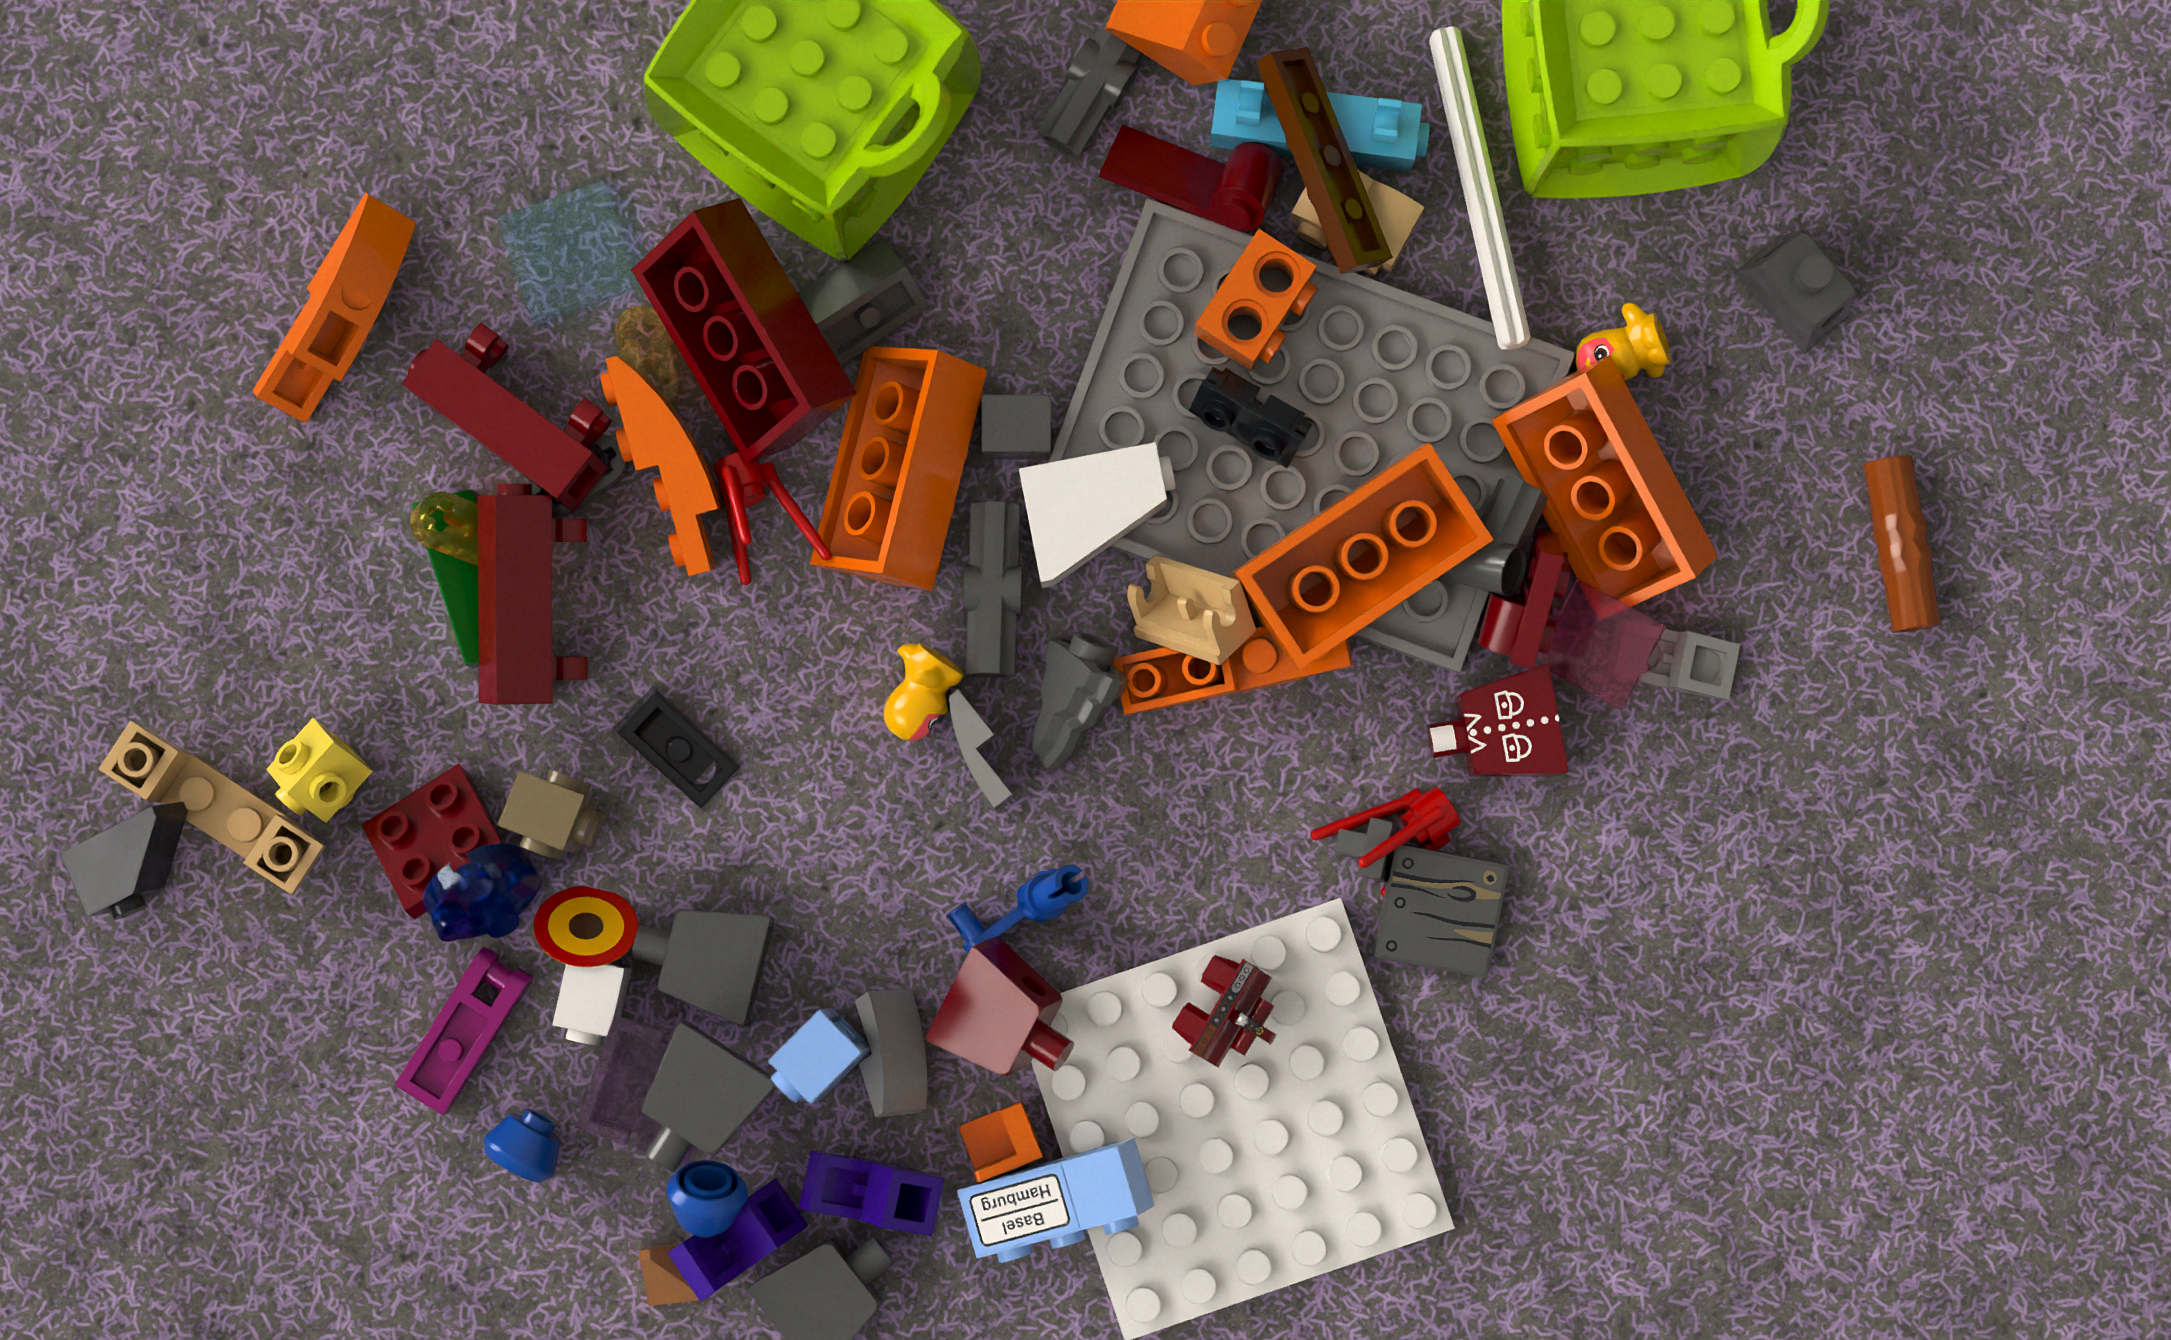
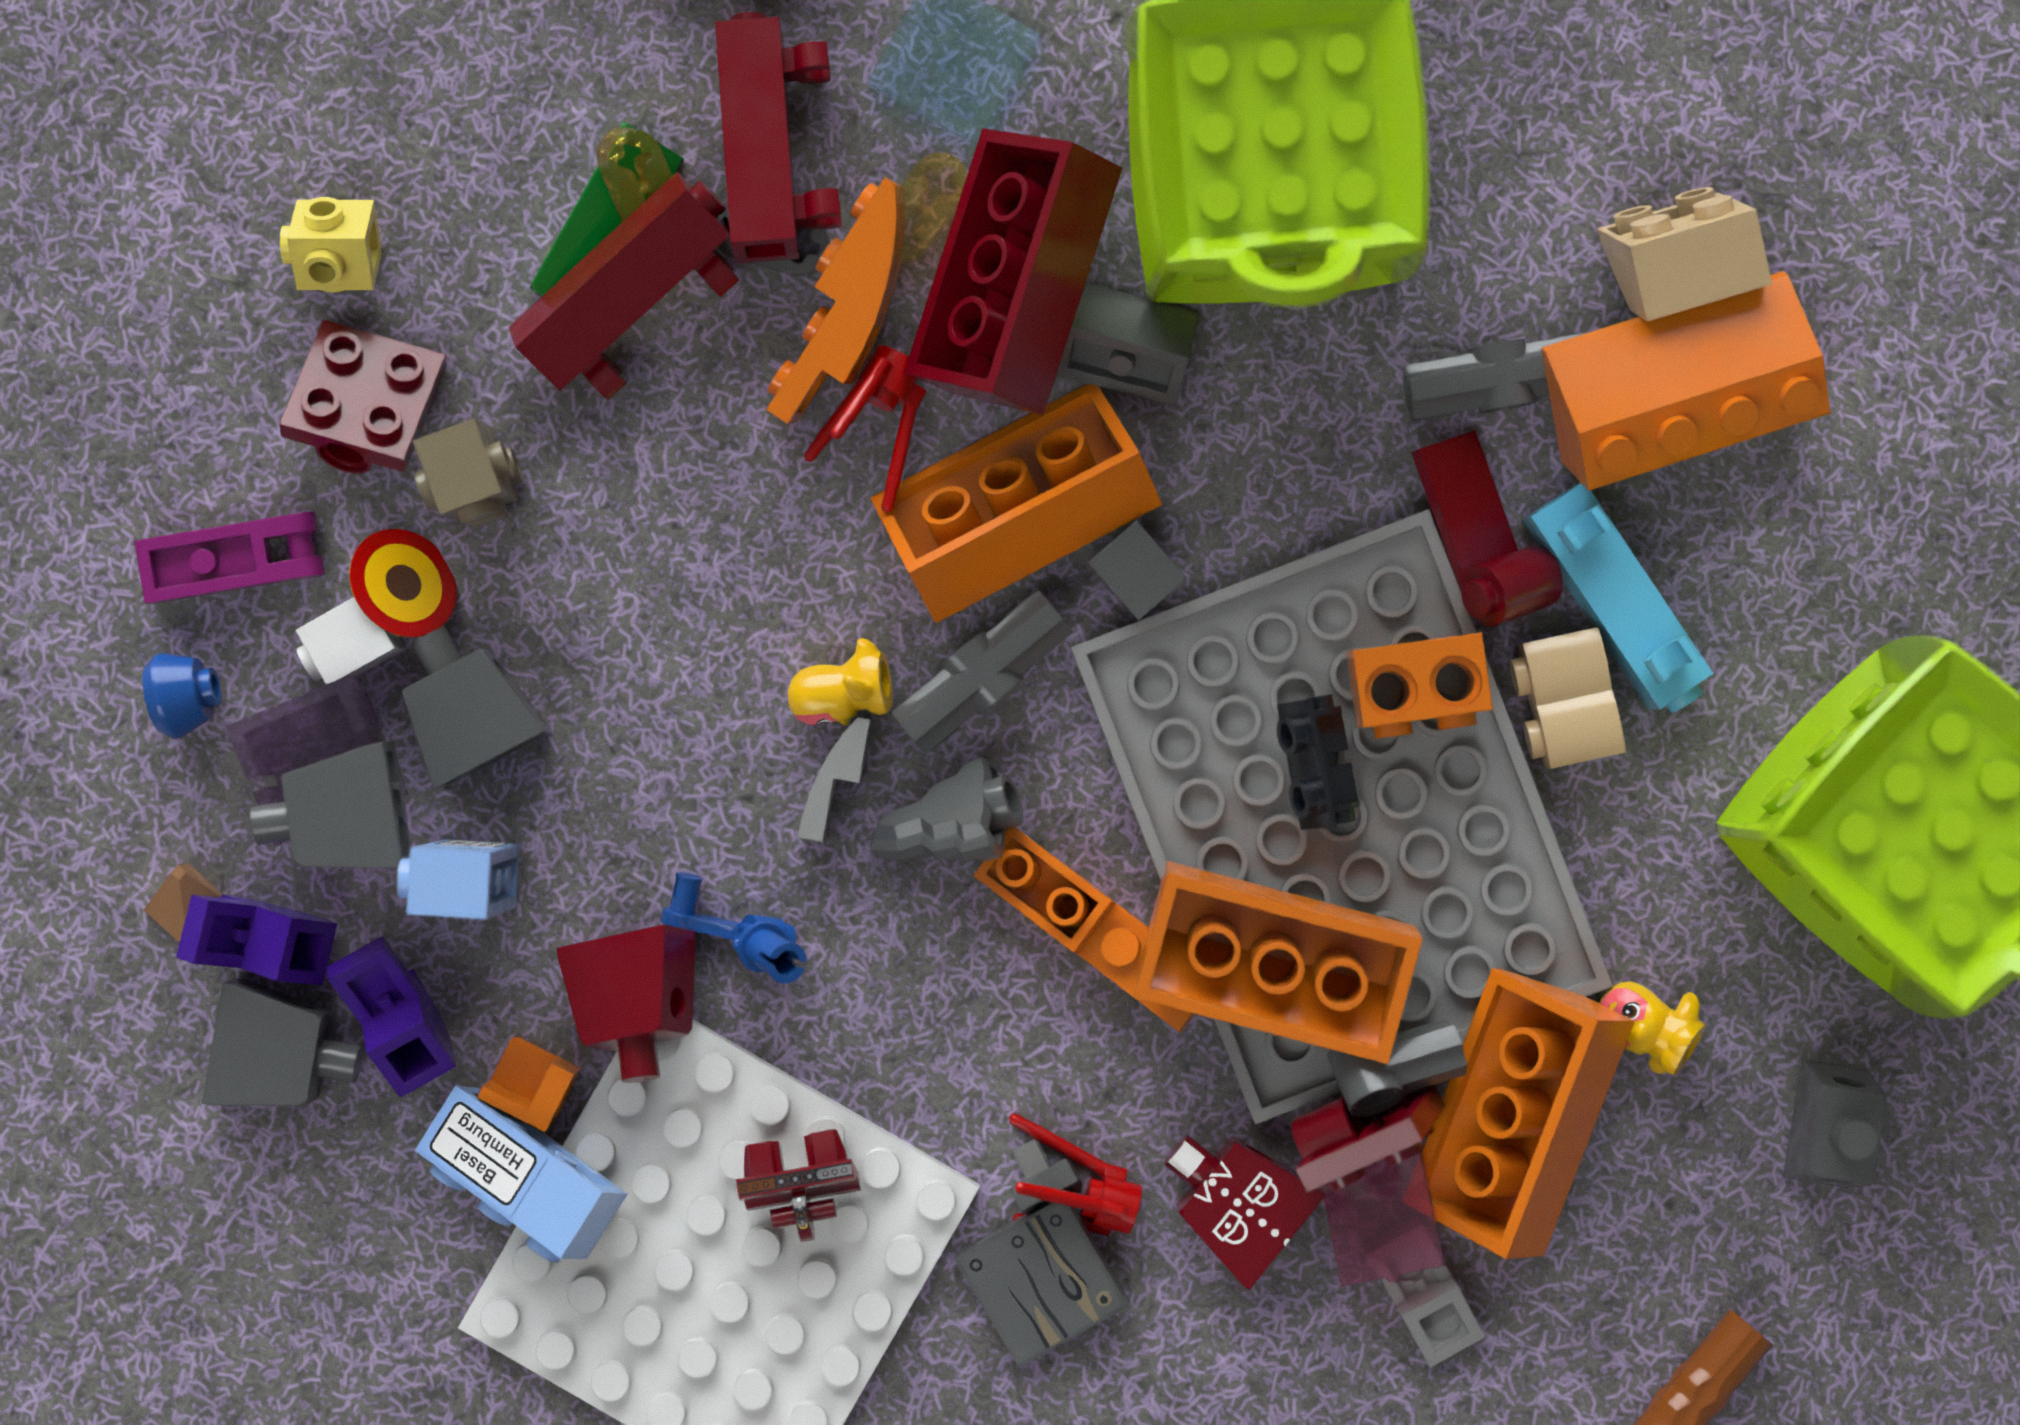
camera: 45 degrees right, 5 degrees up
(126, 861) = (117, 152): slope -> none
(215, 804) = (234, 182): tan slope -> none
(477, 894) = (351, 476): clear blue plate -> none
(675, 746) = (618, 521): black slope -> none
(706, 1197) = (265, 886): blue cone -> none
(898, 1065) = (516, 944): light grey slope -> none
(1091, 503) = (1124, 694): white slope -> none
(1191, 610) = (1106, 858): tan hinge -> none
(1324, 160) = (1590, 634): reddish brown plate -> none
(1479, 188) = (1684, 783): white axle -> none

